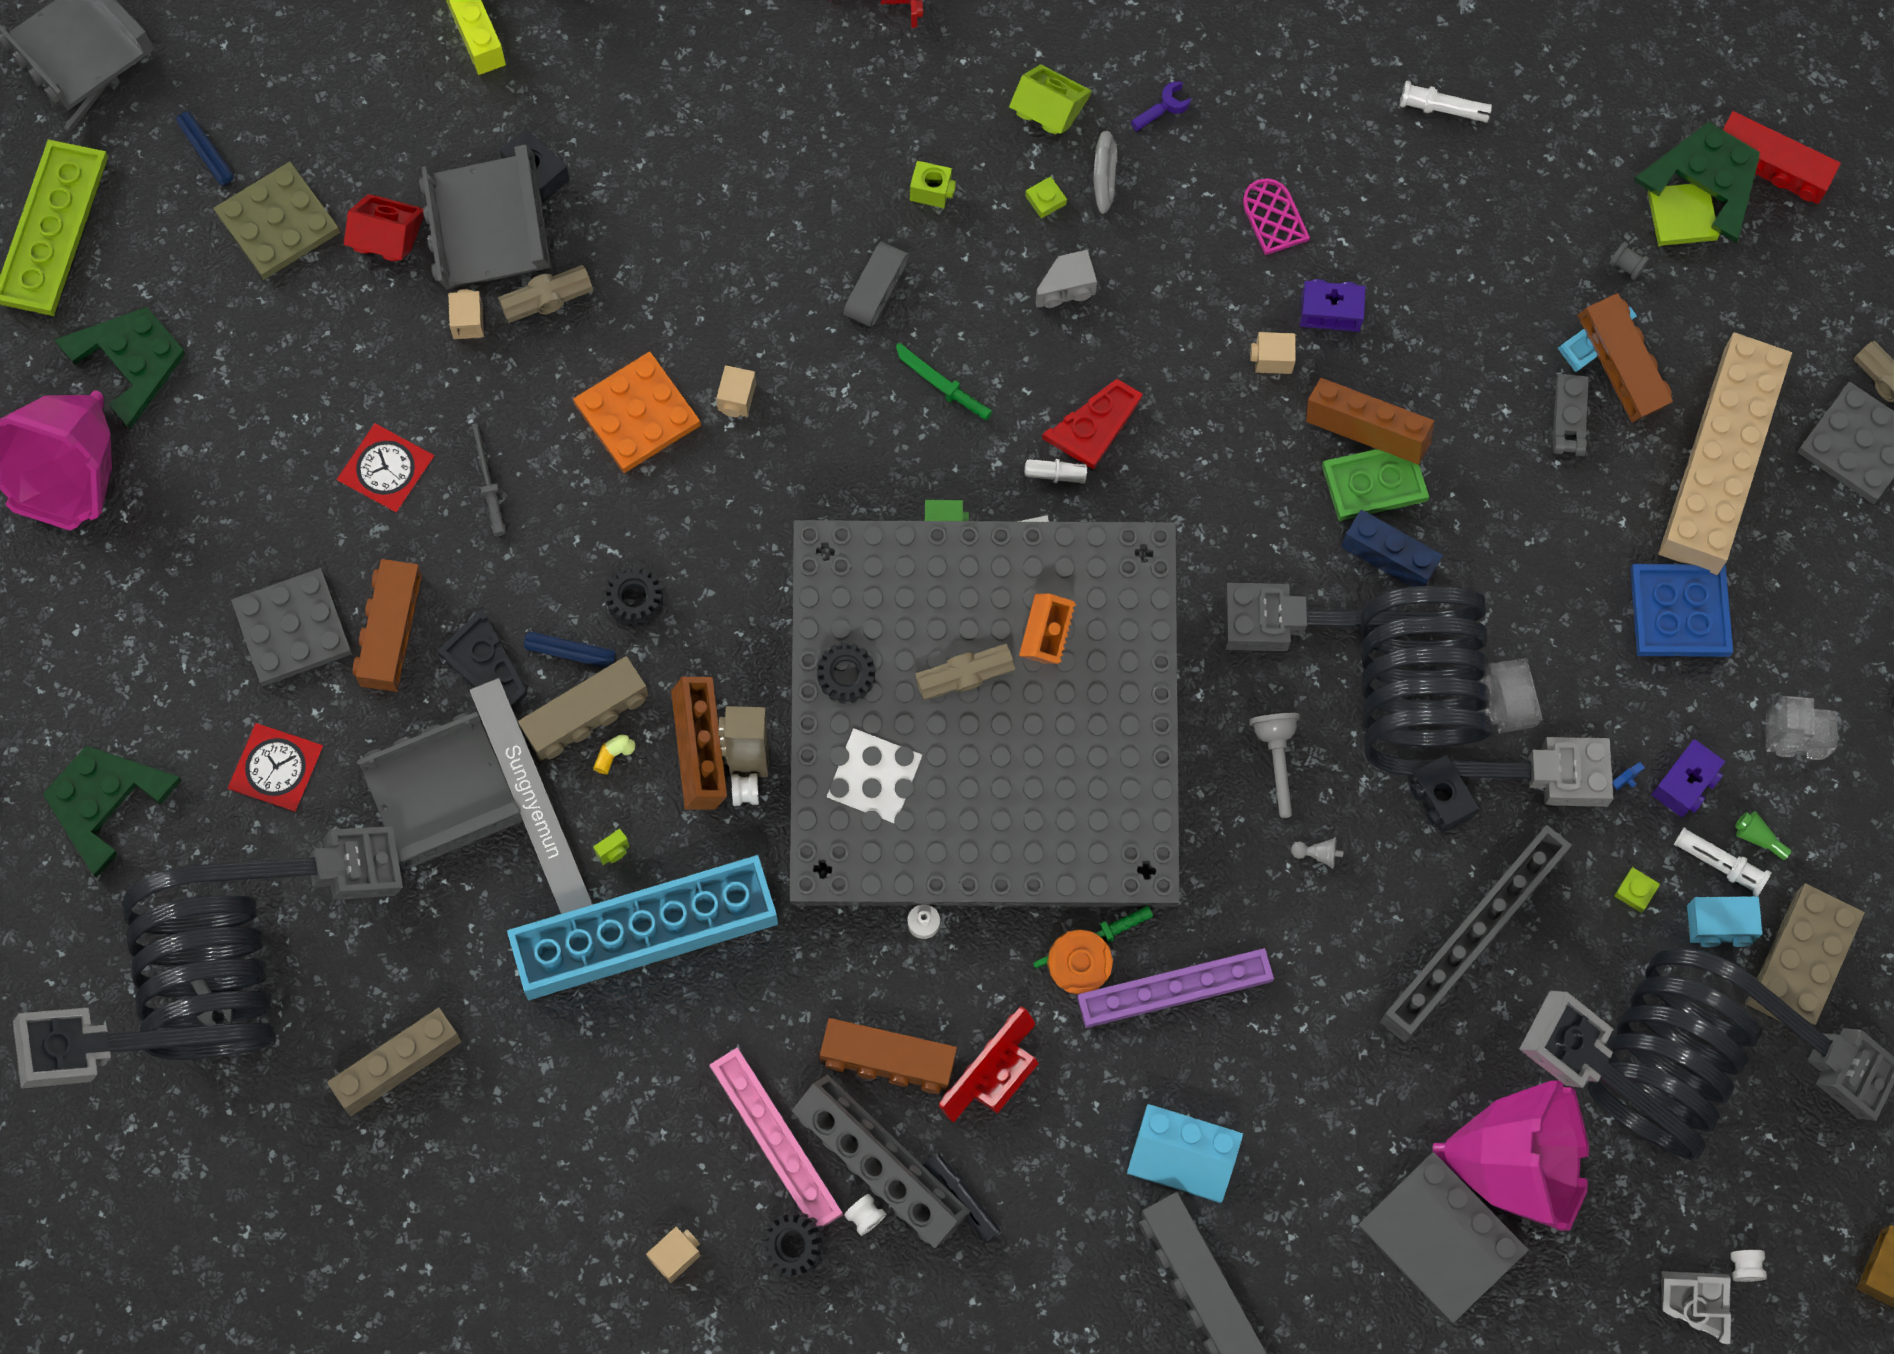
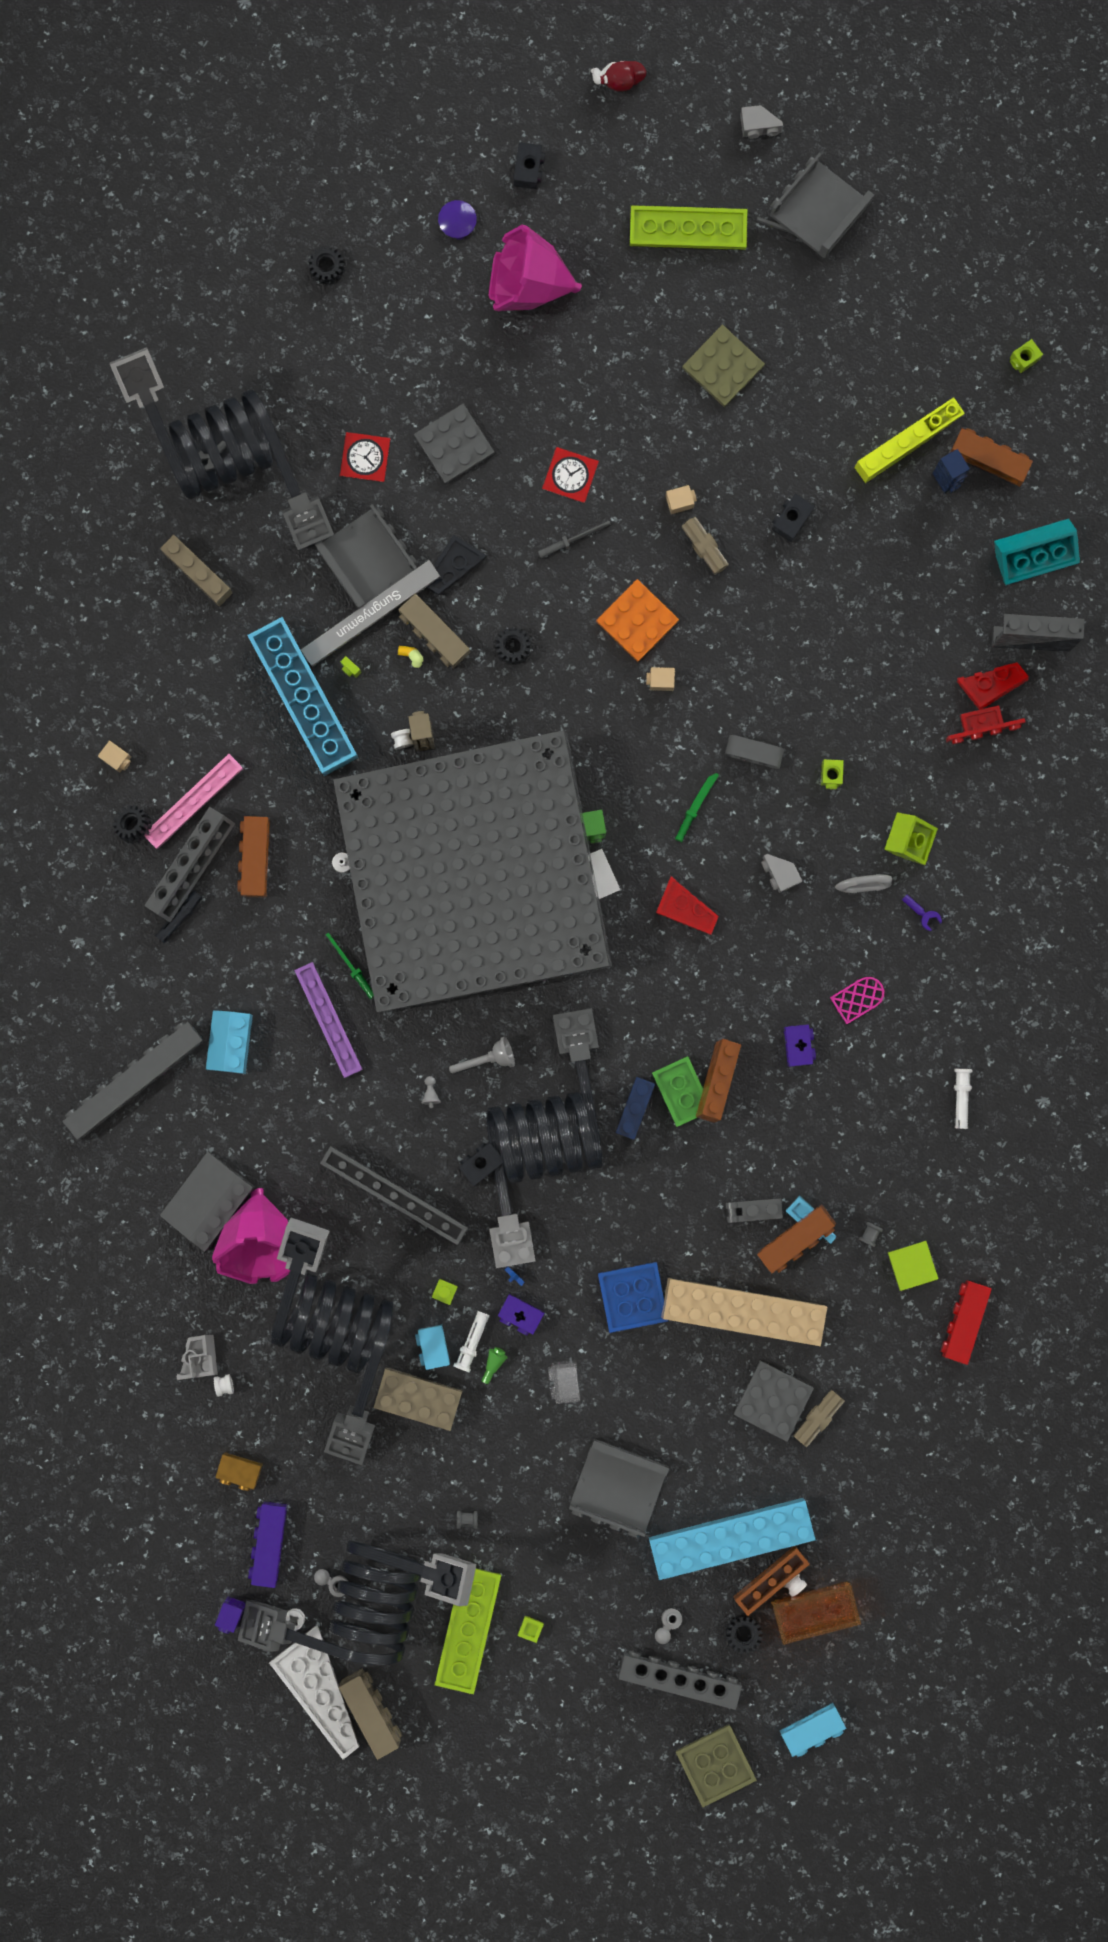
camera: 80 degrees right, 15 degrees up
(93, 790) = (327, 353): dark green wing -> none
(138, 349) = (616, 305): dark green wing -> none
(205, 148) = (764, 308): dark blue axle -> none
(383, 227) = (731, 433): red slope -> none
(388, 625) = (464, 501): dark orange brick -> none
(485, 220) = (745, 495): dark grey panel -> none
(569, 649) = (472, 609): dark blue axle -> none
(698, 743) = (429, 702): dark orange brick -> none
(839, 654) = (460, 777): black tyre -> none
(865, 1214) = (158, 862): white wheel -> none
(886, 772) = (419, 820): white sticker -> none
(965, 672) = (485, 854): dark tan piece -> none
(996, 1070) = (256, 922): red bracket -> none
(1045, 197) = (840, 849): lime plate -> none
(1047, 628) = (519, 898): orange brick -> none
(1056, 471) = (648, 889): white axle -> none
(1079, 961) = (333, 960): orange tile -> none
(1273, 353) = (757, 1013): tan brick -> none
(1512, 696) = (546, 1195): clear brick -> none
(1714, 164) = (948, 1281): dark green wing -> none

